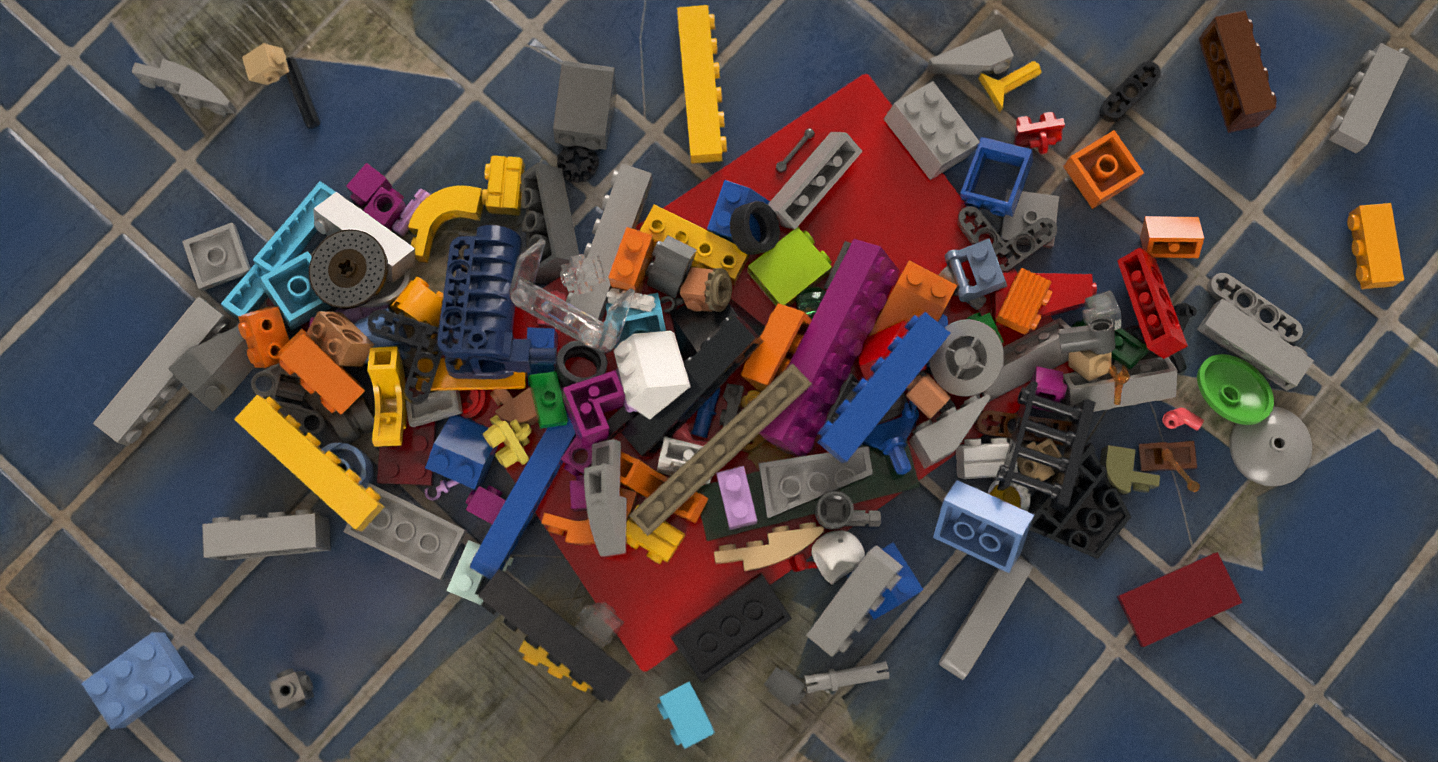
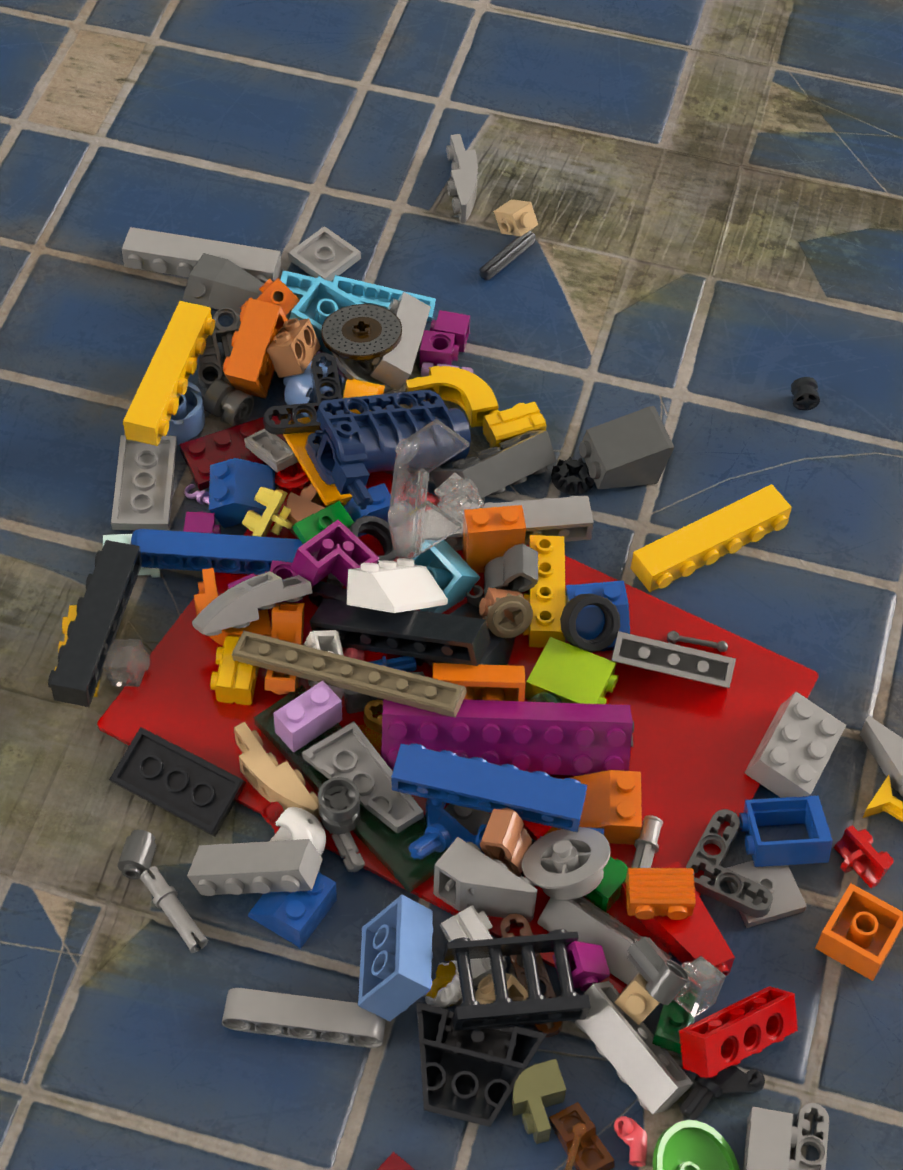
camera: 60 degrees right, 25 degrees down
(265, 536) = (88, 378): light grey brick -> none
(388, 384) = (247, 419): yellow arch -> none
(641, 301) = (458, 551): white axle -> none
(686, 715) = (69, 774): medium azure brick -> none
(984, 267) = (673, 850): sand blue plate -> none
(1119, 379) = (629, 1028): clear orange hand -> none
(1172, 237) = (831, 1034): orange brick -> none

